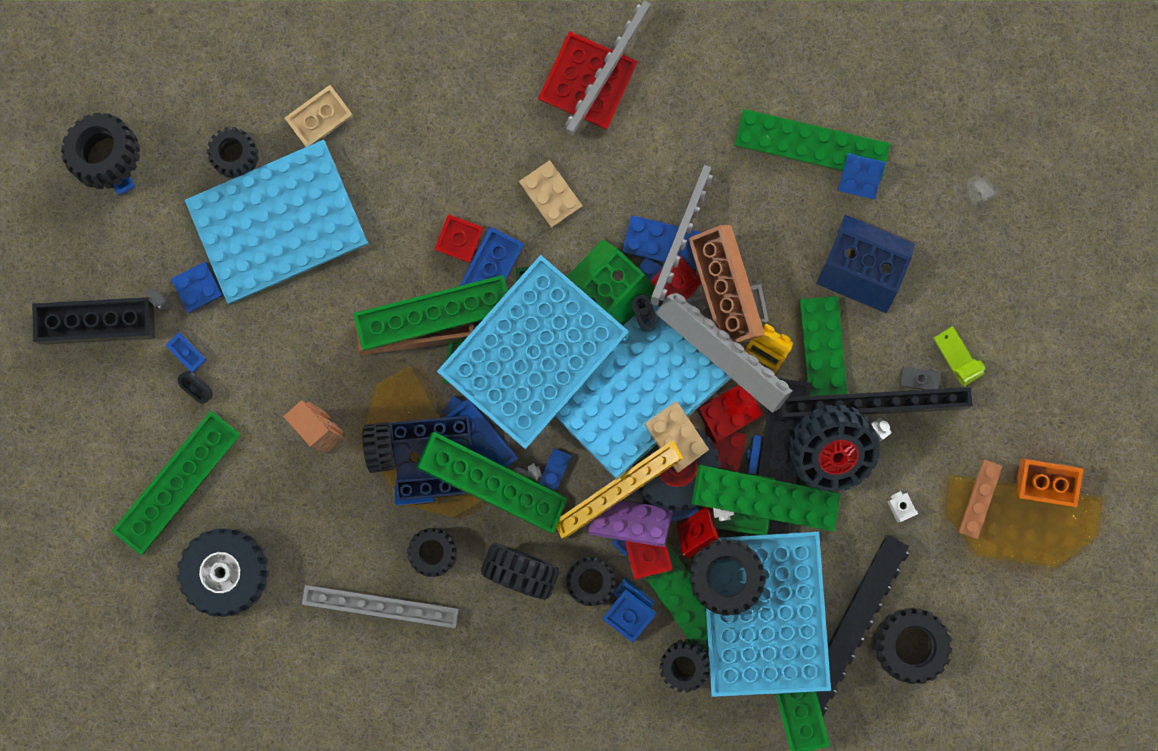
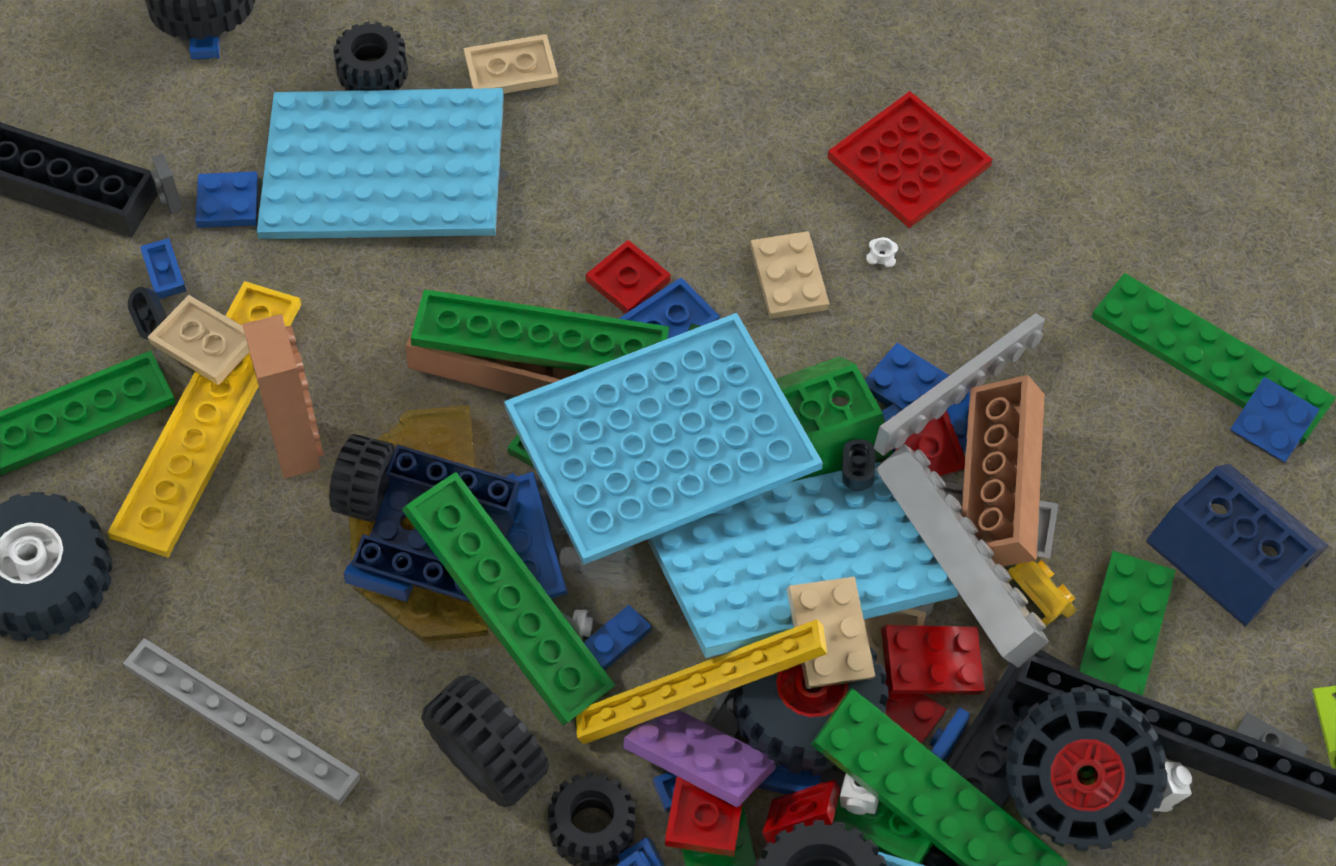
camera: 25 degrees right, 25 degrees down
(238, 393) = (201, 339): none -> tan plate
(264, 436) = (195, 438): none -> yellow plate
(415, 547) = (370, 694): black tyre -> none
(598, 150) = (882, 245): none -> white plate
(611, 61) = (945, 146): light grey plate -> none

